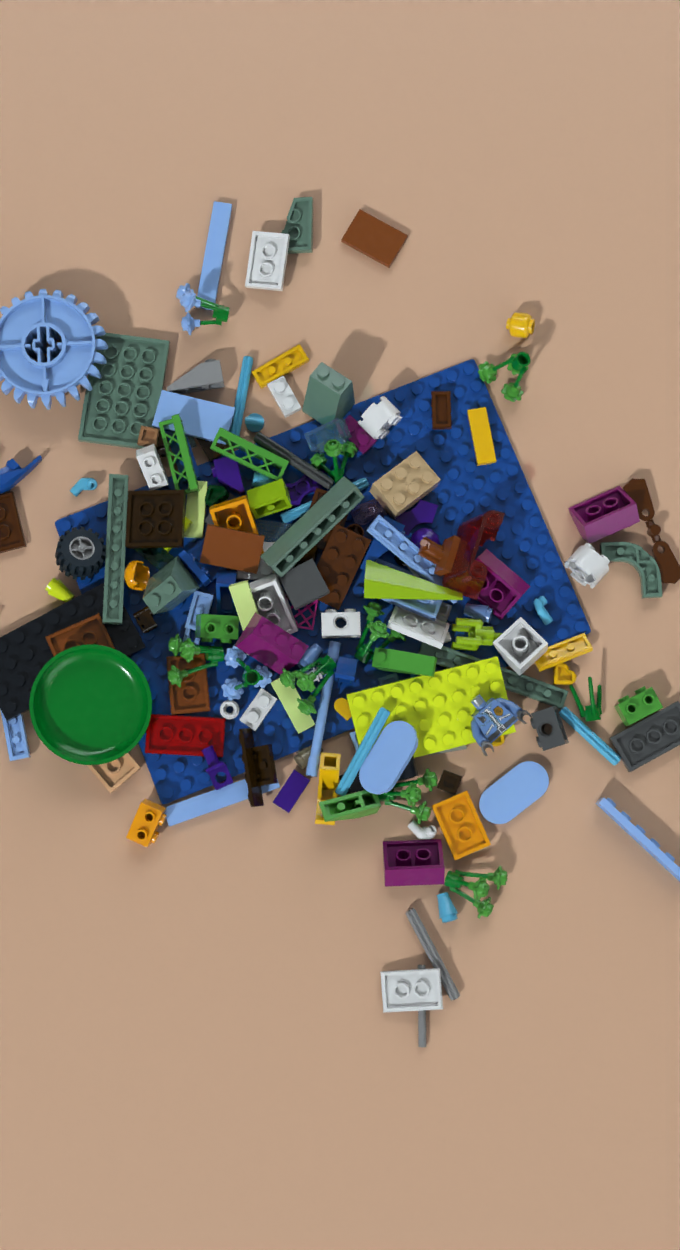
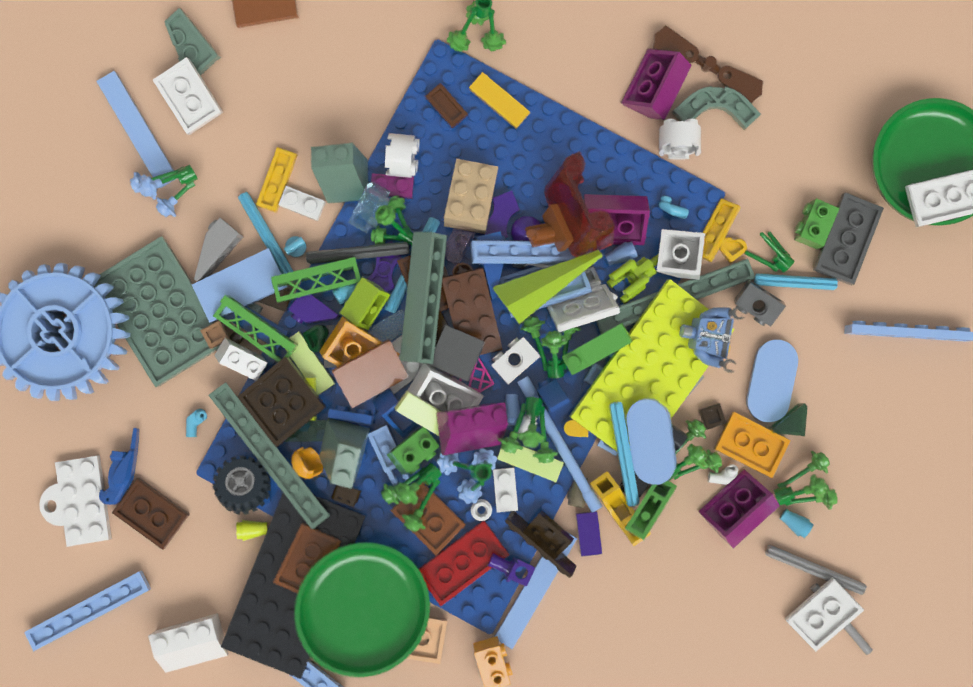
camera: 45 degrees left, 5 degrees up
(502, 833) = (793, 422): none -> clear green slope

